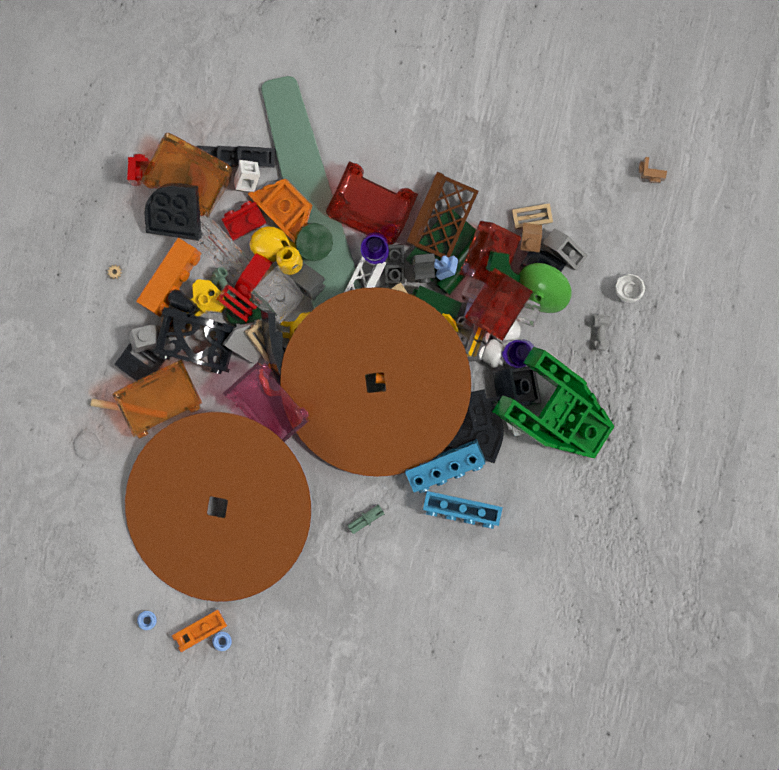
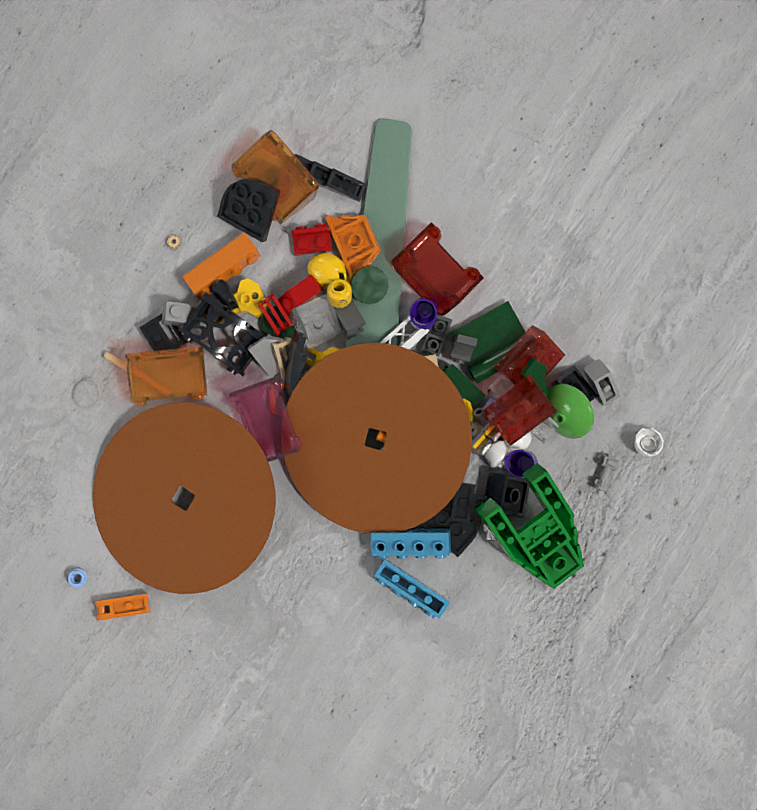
camera: 20 degrees right, 0 degrees up
(135, 172) = (228, 152): red bracket -> none
(217, 645) = (133, 624): light blue plate -> none
(219, 278) = (268, 284): sand green bar -> none
(222, 244) = (284, 255): clear fence -> none
(247, 176) = (330, 199): white brick -> none
(365, 519) = (317, 563): sand green axle -> none
(427, 209) = (489, 293): reddish brown fence -> none
(445, 267) = (483, 356): light blue tile -> none
(531, 237) = (574, 359): medium nougat brick -> none
(532, 208) = (566, 336): tan tile -> none
(653, 175) = (712, 346): medium nougat bracket -> none

